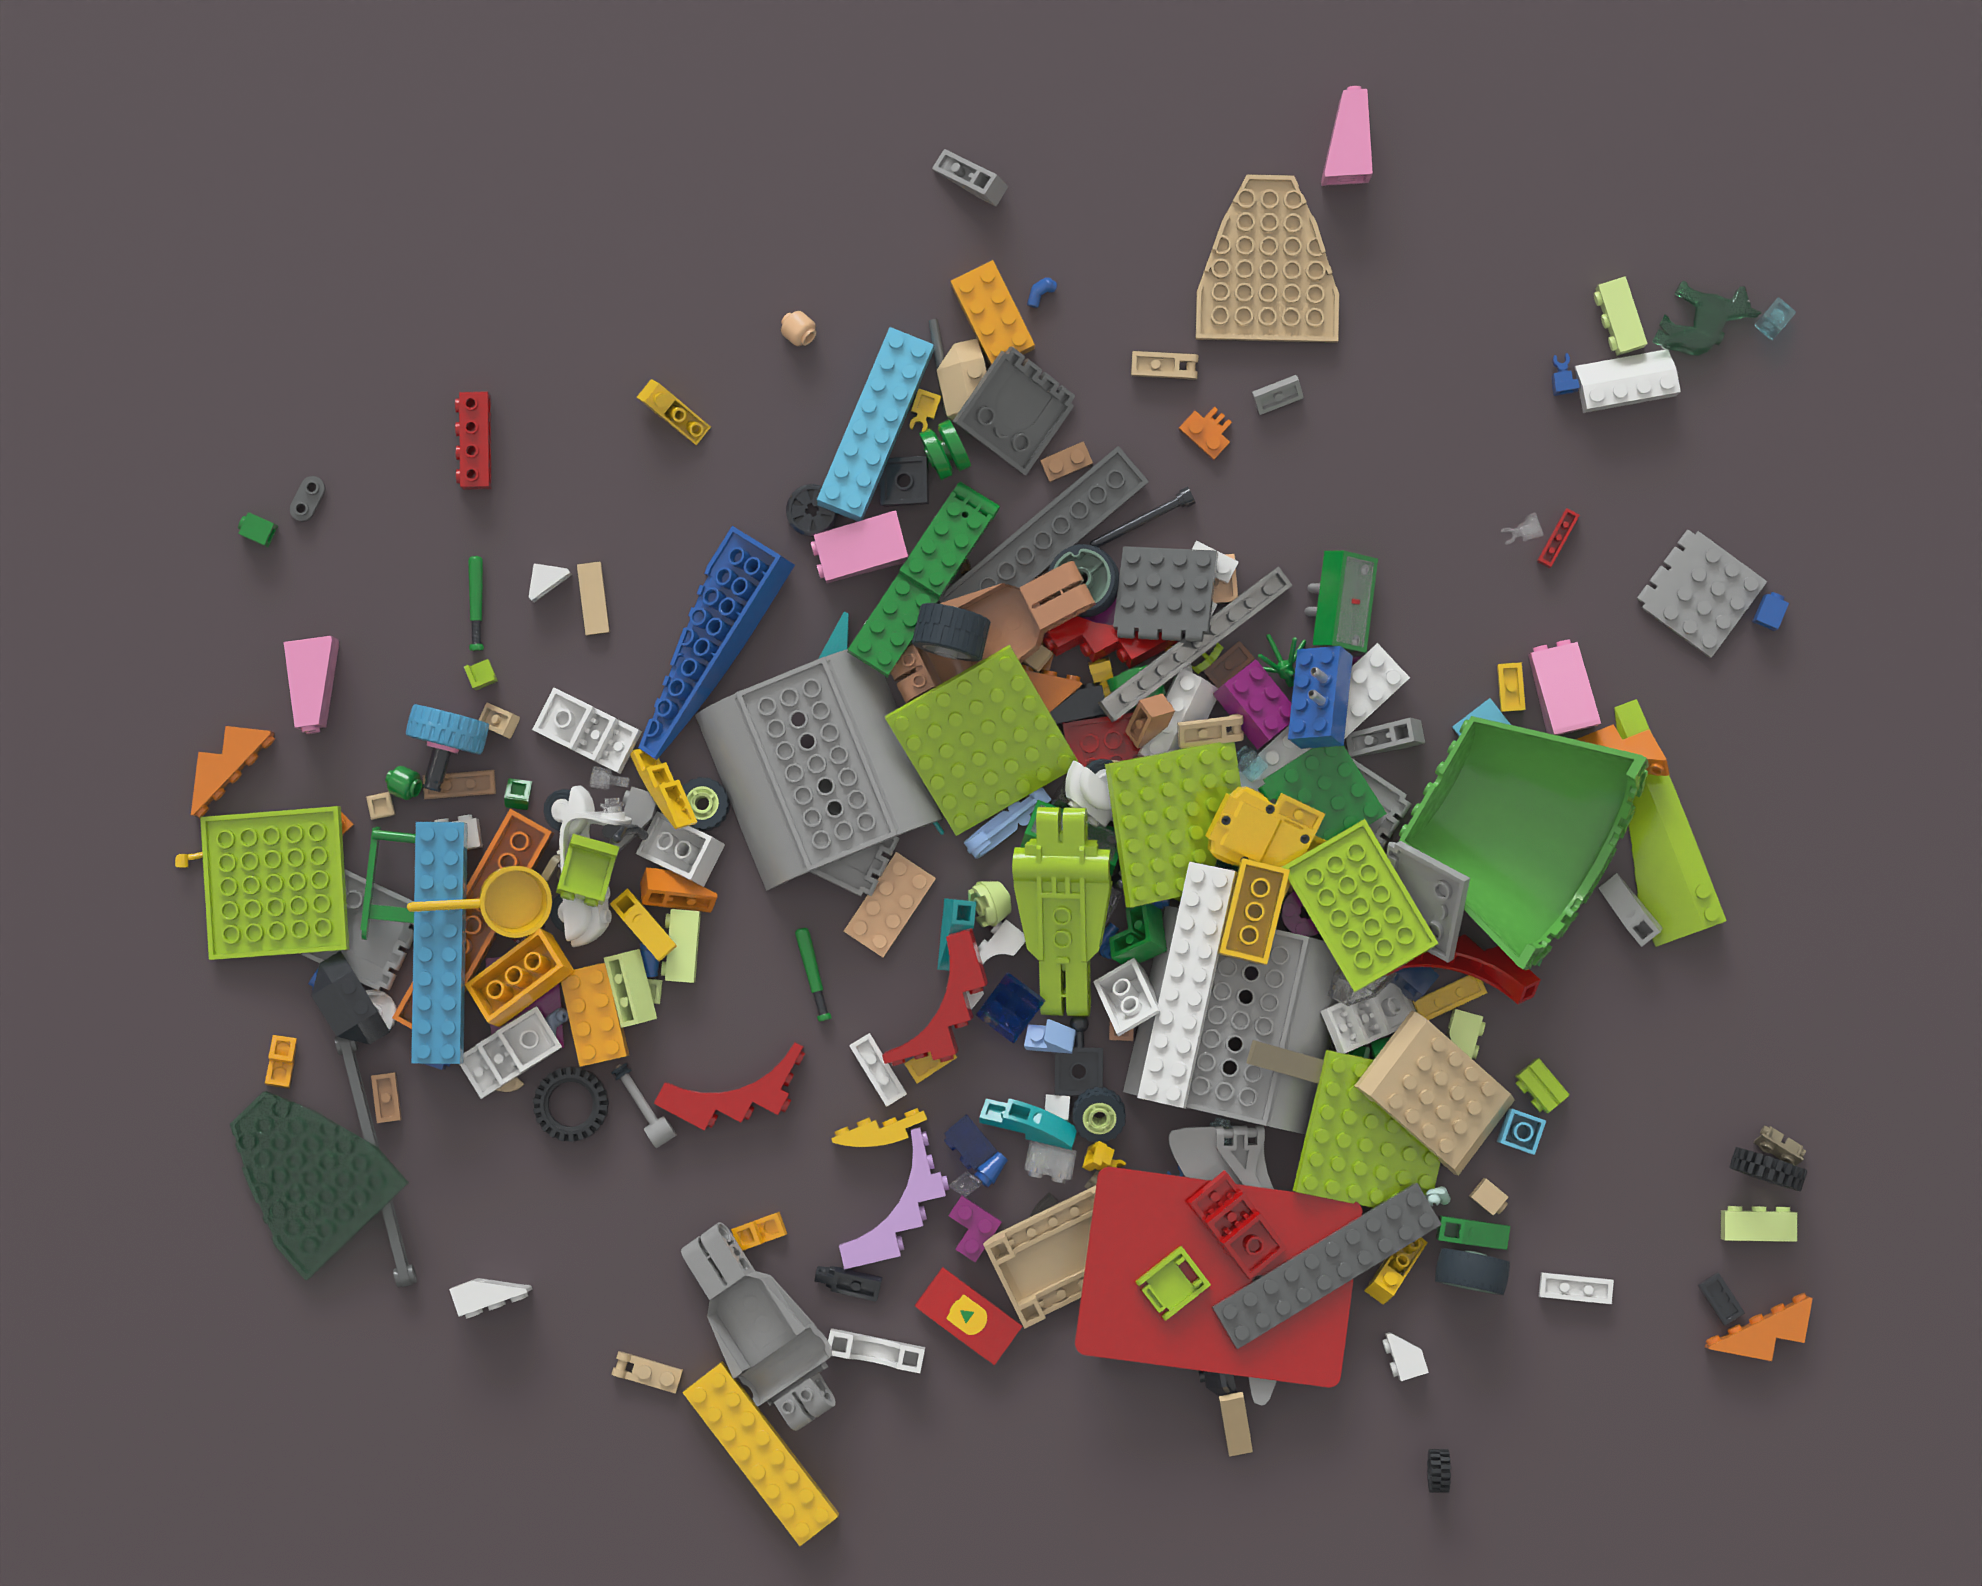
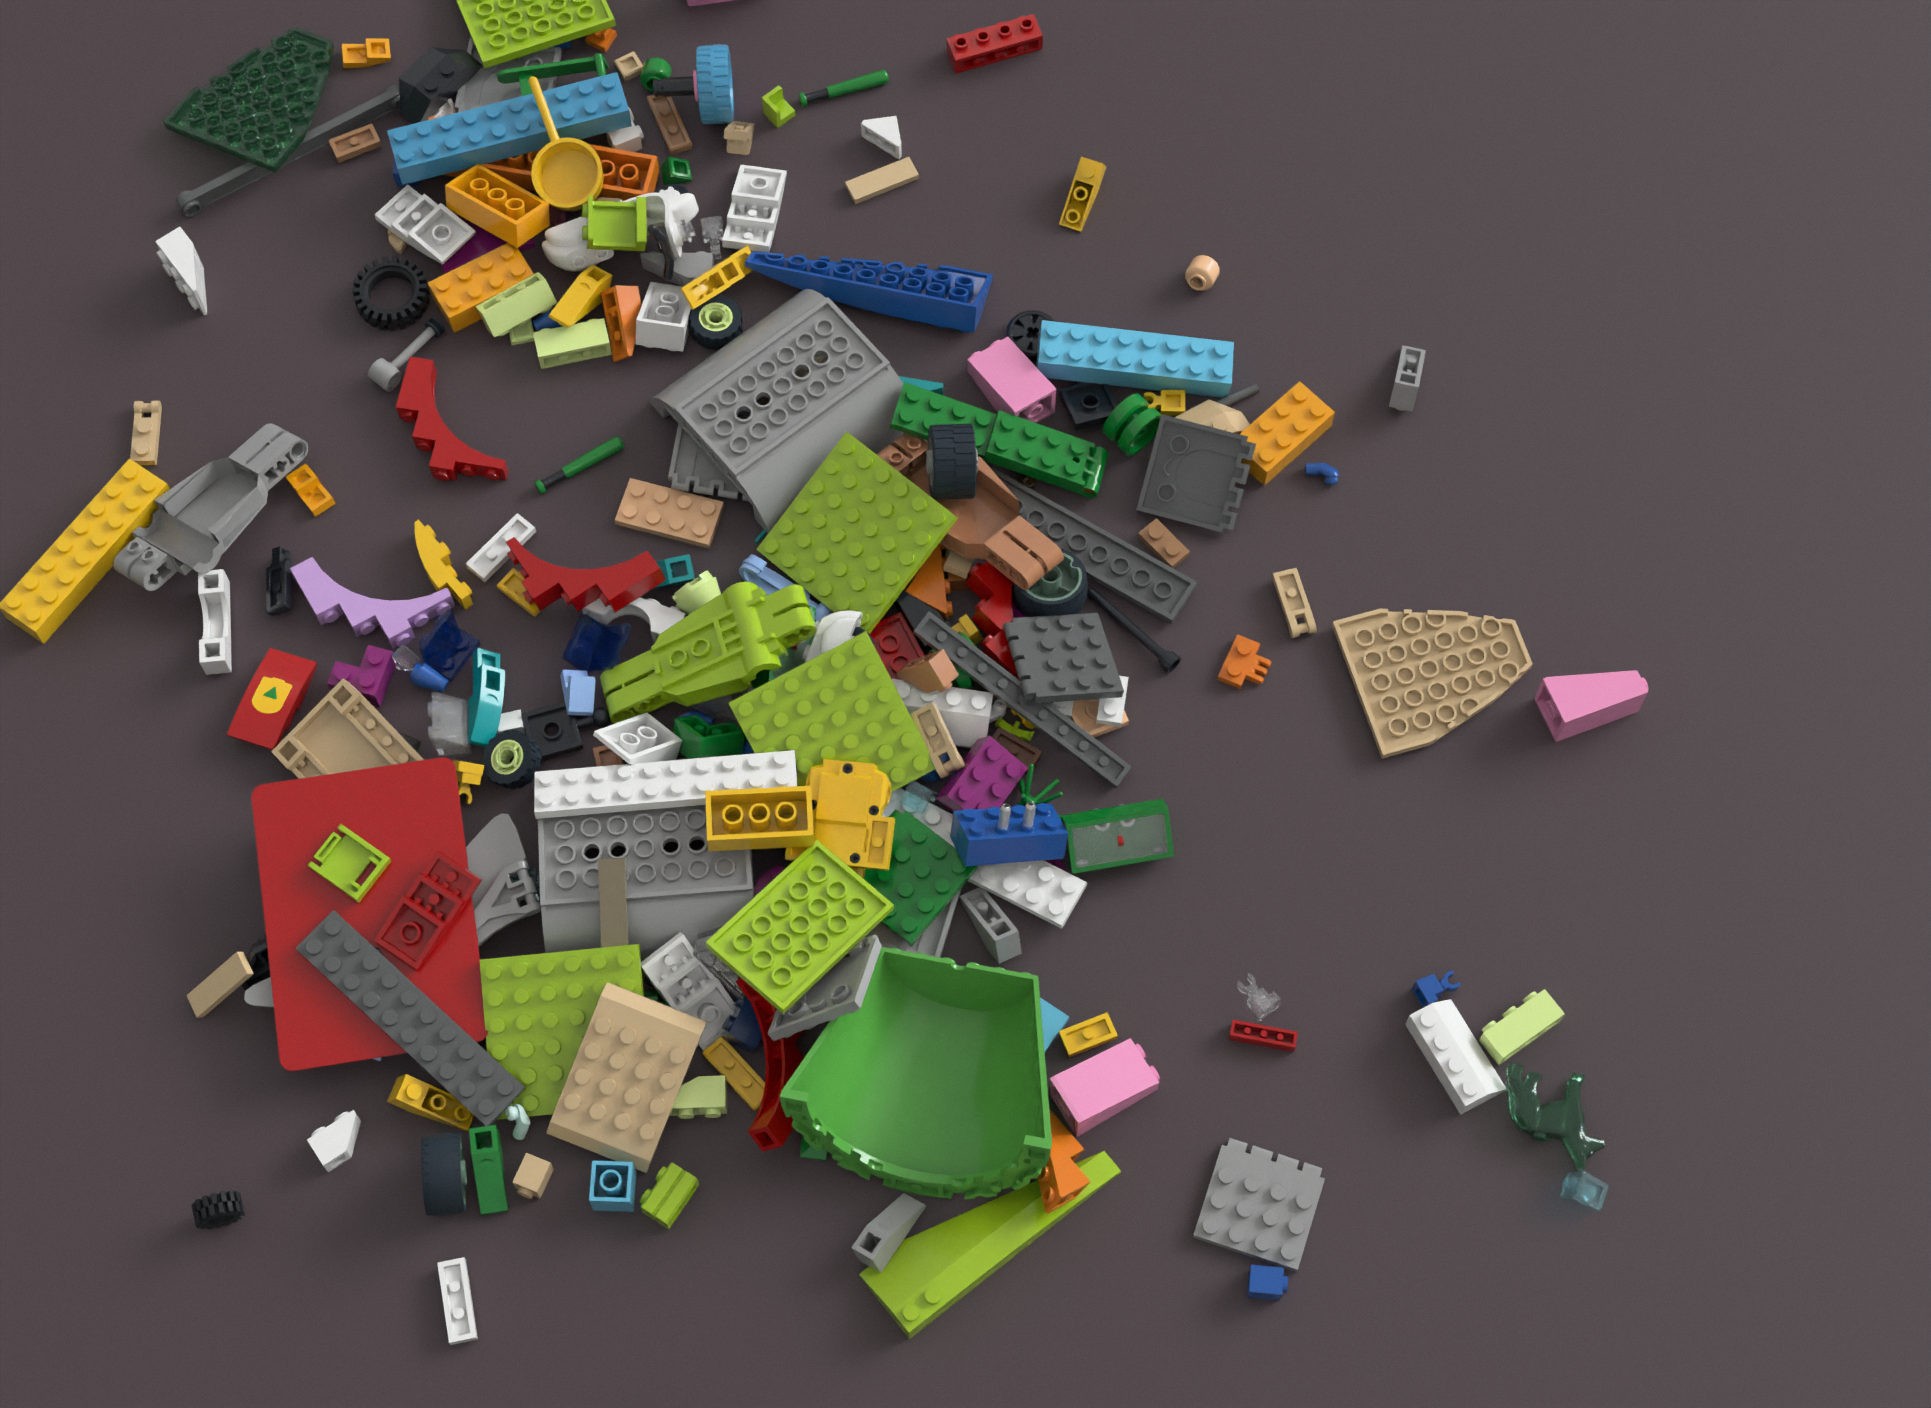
camera: 70 degrees right, 20 degrees down
(557, 1018) = (465, 254): sand blue arm -> none
(1277, 394) = (1306, 715): light grey plate -> none

